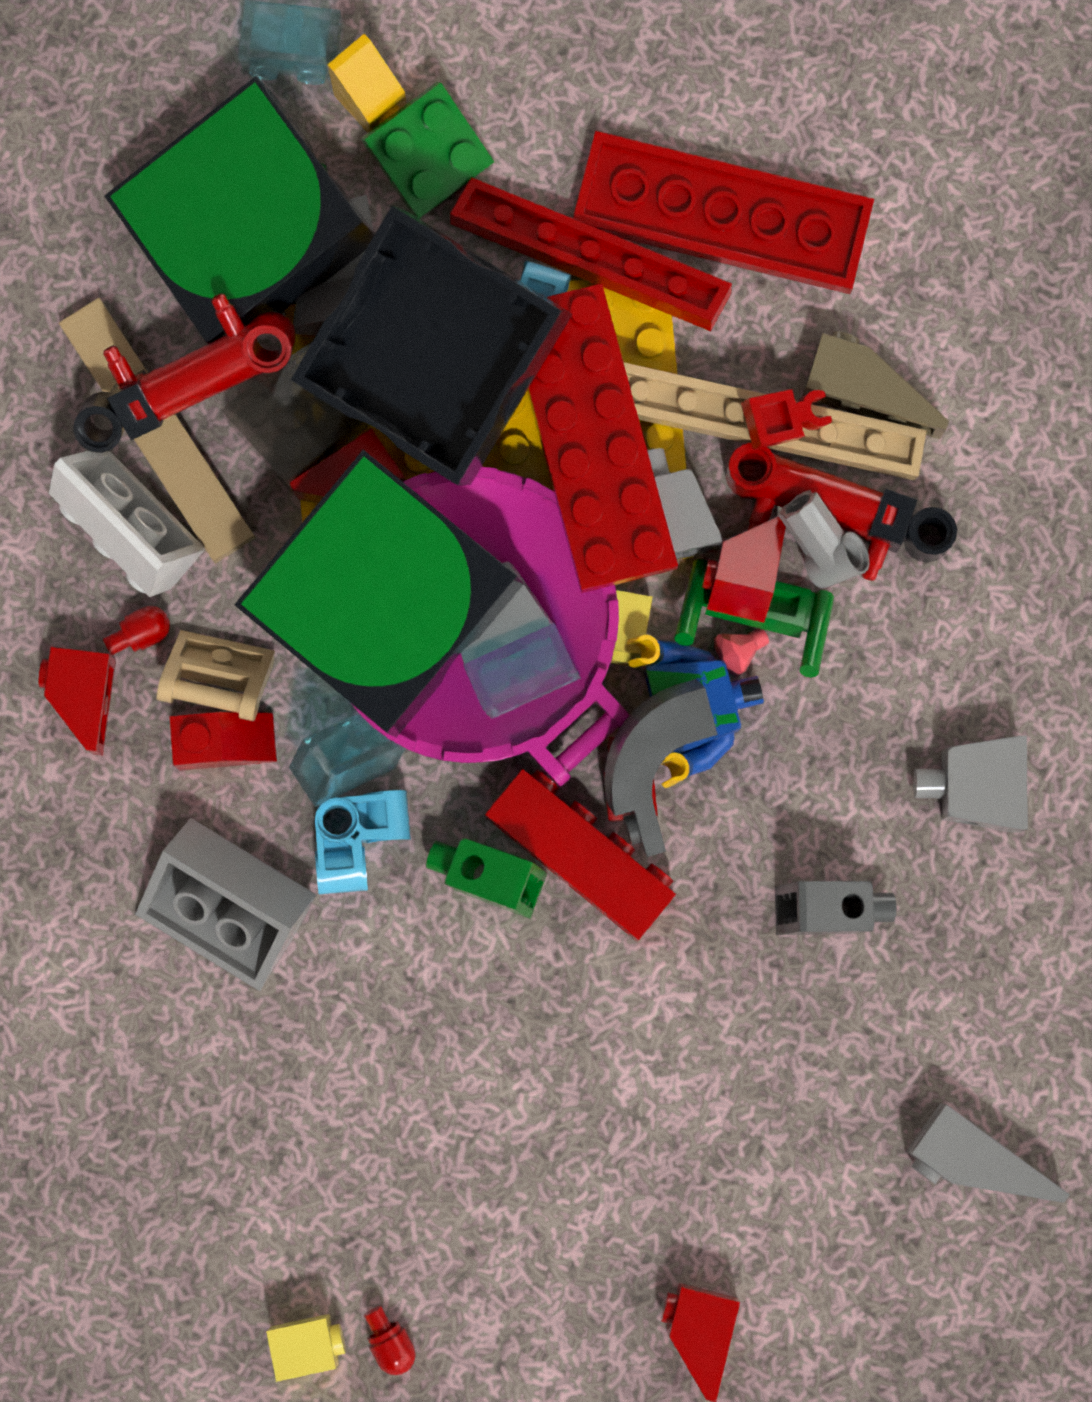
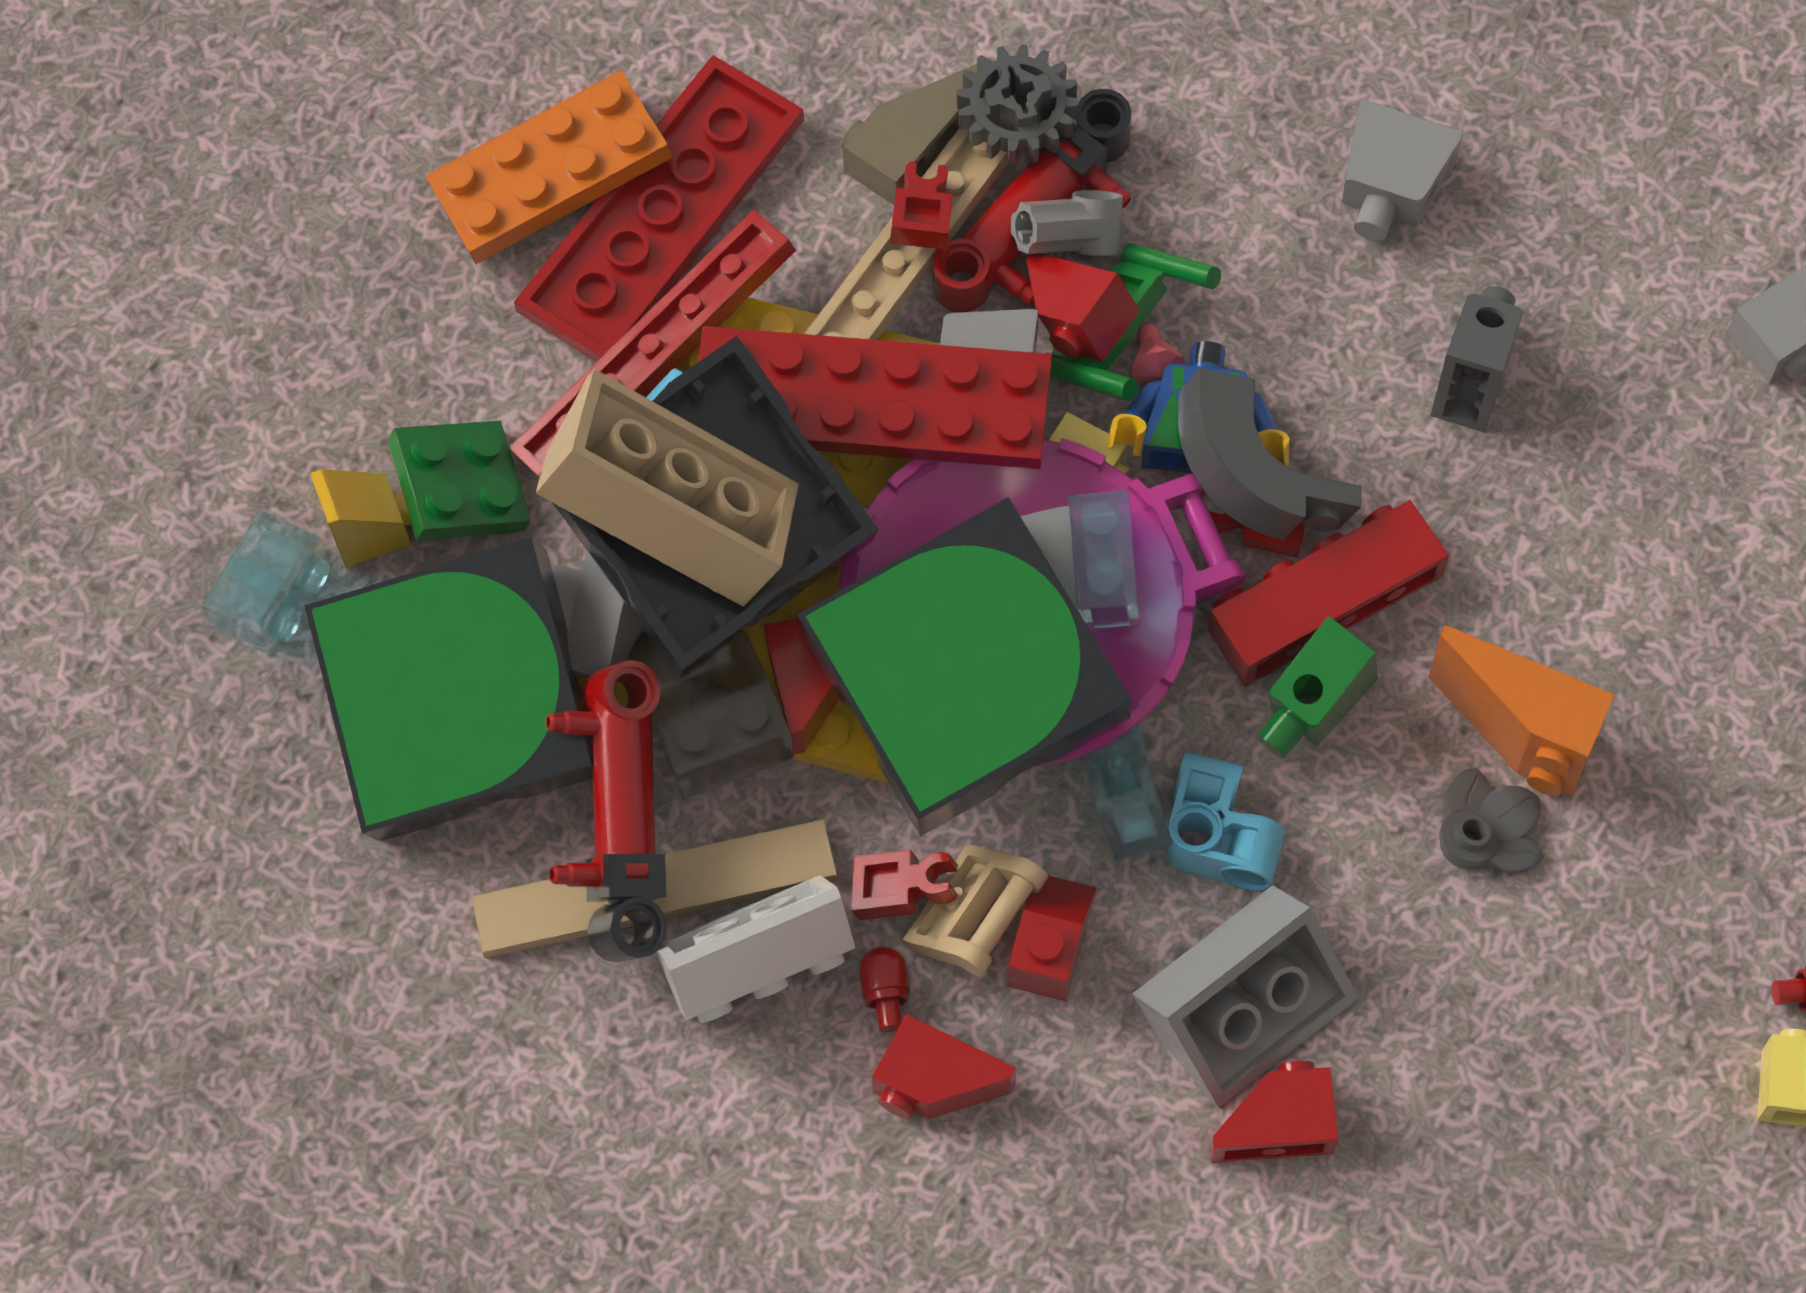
camera: 65 degrees left, 15 degrees down
(136, 964) = (1281, 1117): none -> red slope
(214, 609) = (892, 882): none -> plate
(420, 310) = (669, 489): none -> tan slope
(441, 1050) = (1495, 818): none -> dark grey plate
(520, 1056) = (1523, 709): none -> orange slope
(725, 109) = (548, 166): none -> orange plate
(899, 441) = (1001, 118): none -> dark grey gear

